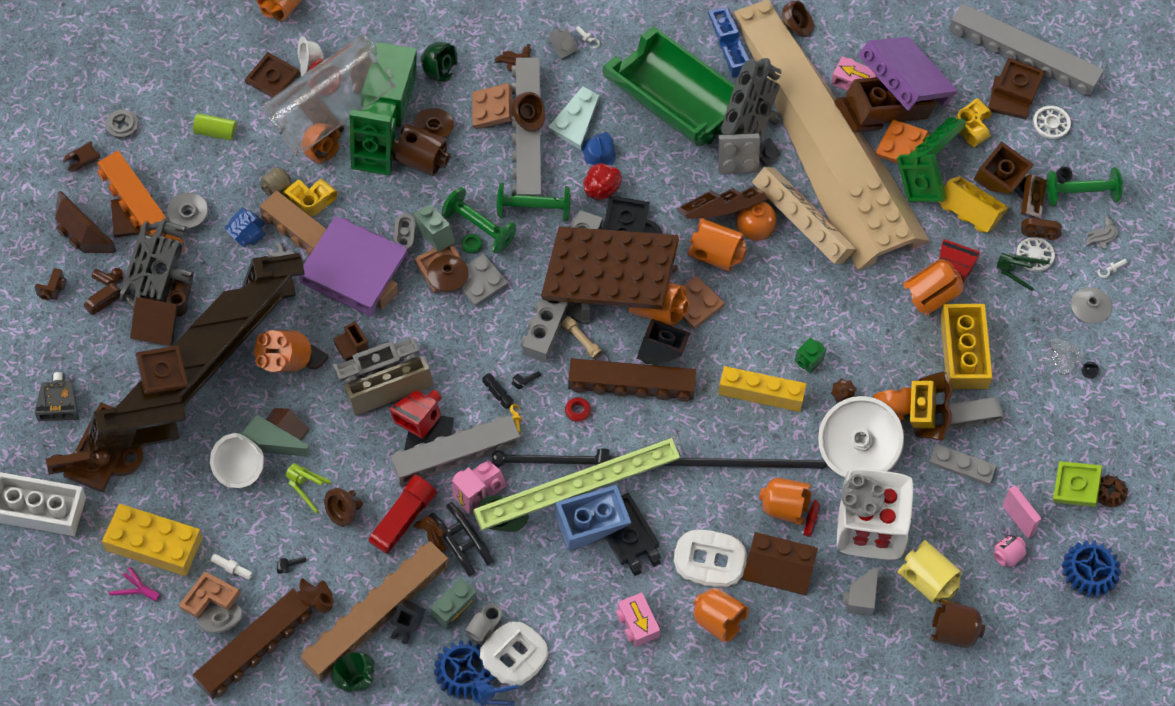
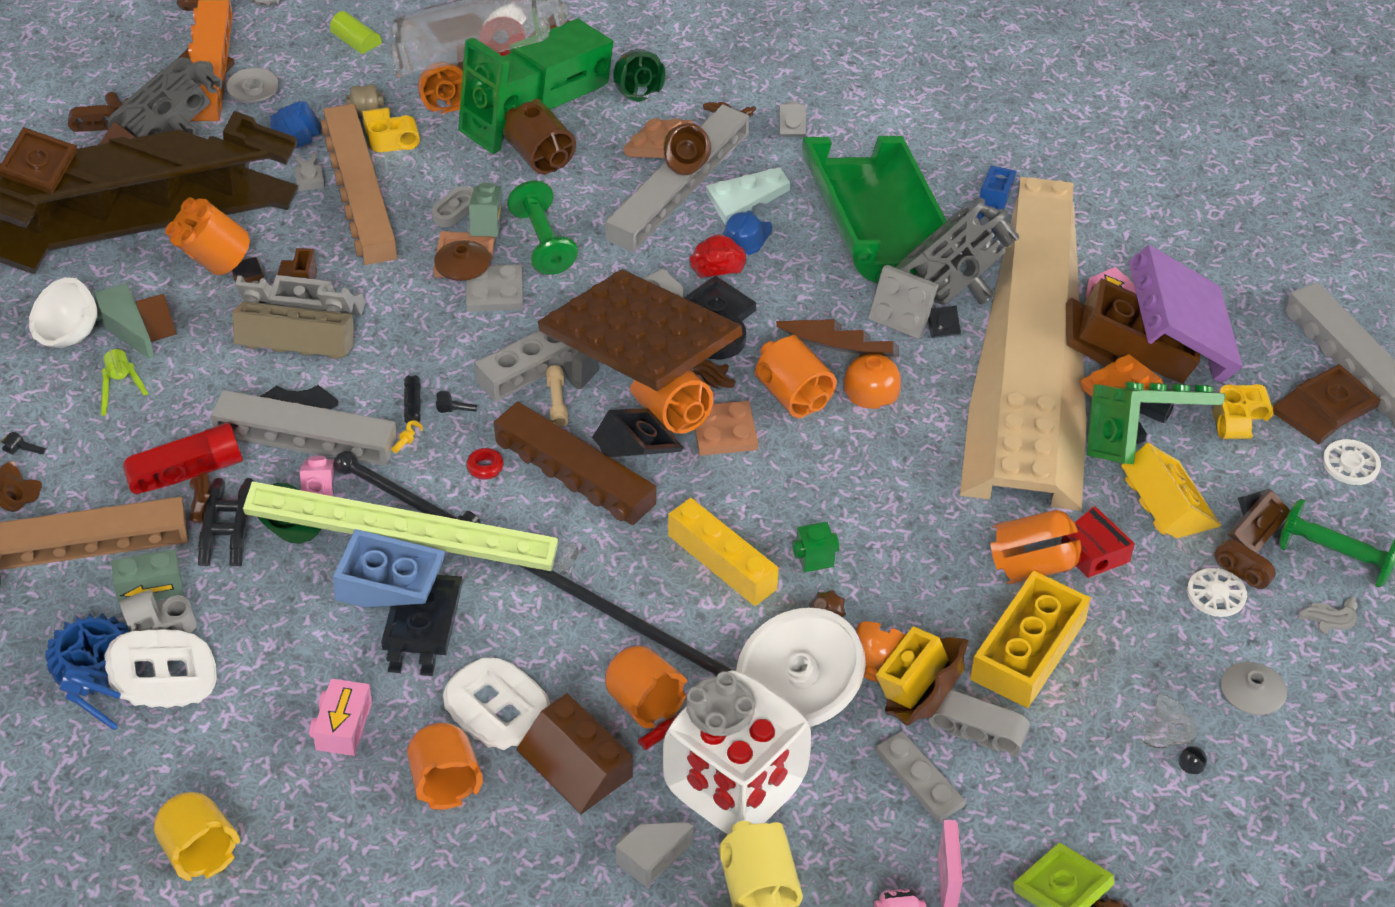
camera: 35 degrees right, 15 degrees down
(56, 284) = (57, 86): reddish brown bracket -> none
(79, 228) = (133, 47): reddish brown wedge -> none
(341, 506) = (130, 415): reddish brown hair -> none
(352, 265) = (364, 200): medium lavender panel -> none
(407, 619) = (80, 562): black brick -> none
(417, 412) = (300, 369): red torso -> none
(435, 118) = (584, 125): reddish brown dish -> none
(468, 490) = (272, 460): bright pink brick -> none
(471, 243) = (519, 251): green tile -> none
(533, 202) = (586, 221): green hose -> none
(587, 36) = (827, 128): white hand -> none
(797, 18) = (1093, 212): reddish brown hat -> none
(804, 215) = (933, 401): tan brick -> none
(1003, 170) = (1236, 470): reddish brown slope -> none
(1009, 261) = (1170, 580): dark green plant -> none
(1065, 172) = (1328, 518): black hinge -> none
(1112, 267) = (1318, 659): white hand -> none

